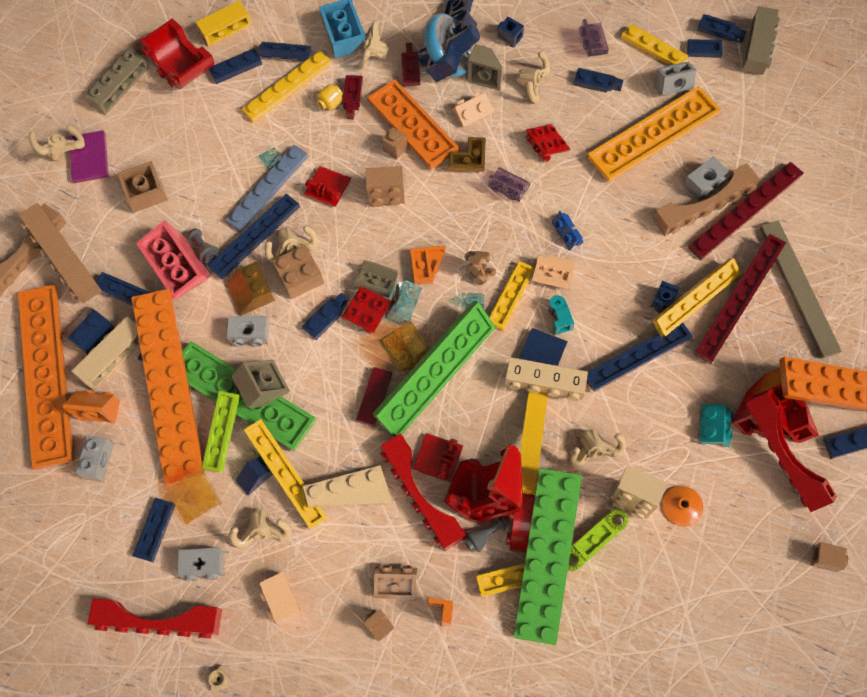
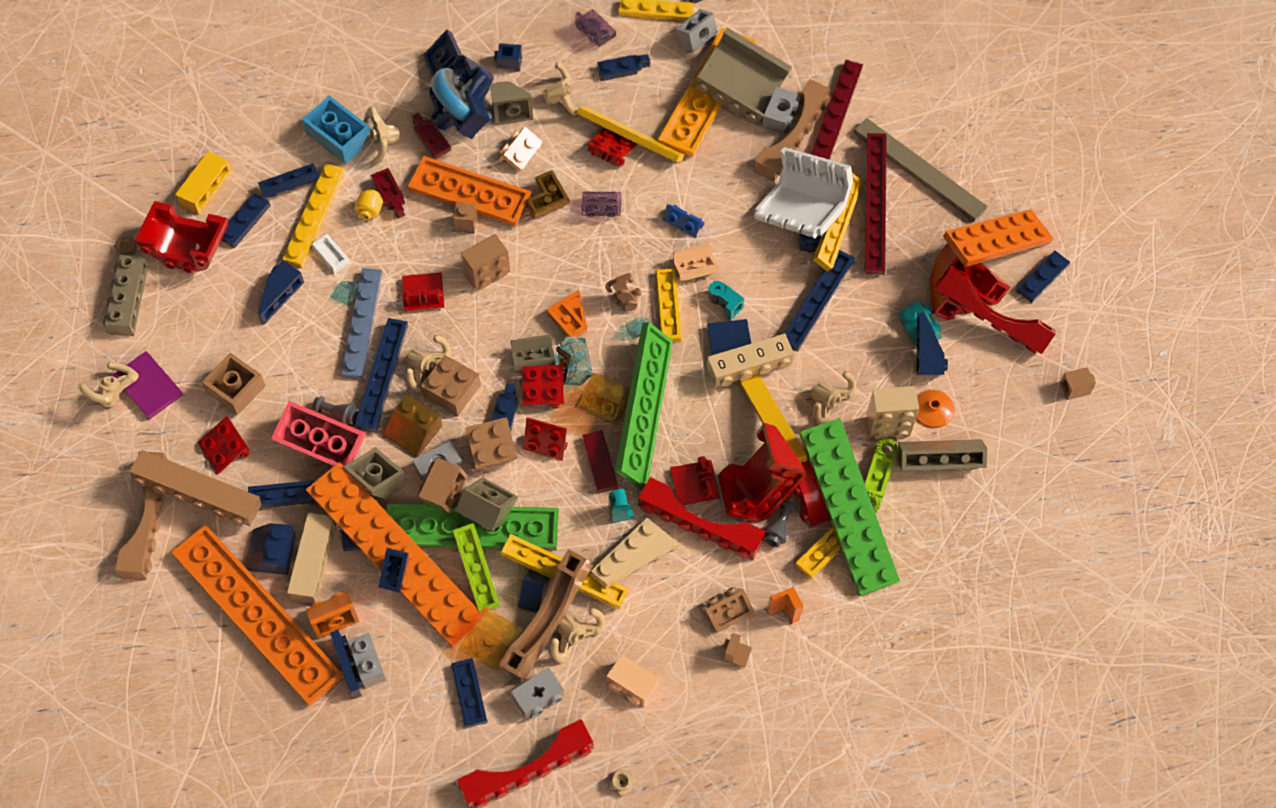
camera: 35 degrees left, 5 degrees down
(84, 429) = (347, 663): none -> dark blue plate
(109, 230) = (223, 445): none -> red hinge
(152, 398) = (394, 569): none -> dark blue slope
(192, 313) = (376, 473): none -> dark tan slope
(221, 131) = (280, 286): none -> dark blue slope
(231, 350) = (442, 485): none -> medium nougat brick
(274, 486) = (565, 585): none -> medium nougat arch
(279, 122) = (330, 253): none -> white tile
(295, 335) = (491, 443): none -> medium nougat brick
(340, 355) = (545, 438): none -> red hinge
(363, 444) = (620, 506): none -> teal leg
(568, 139) = (630, 134): none -> yellow tile
(662, 554) = (942, 455): none -> dark tan brick
(683, 262) = (808, 194): none -> white hinge
(689, 133) = (741, 76): none -> dark tan panel
(706, 456) = (929, 354): none -> dark blue slope

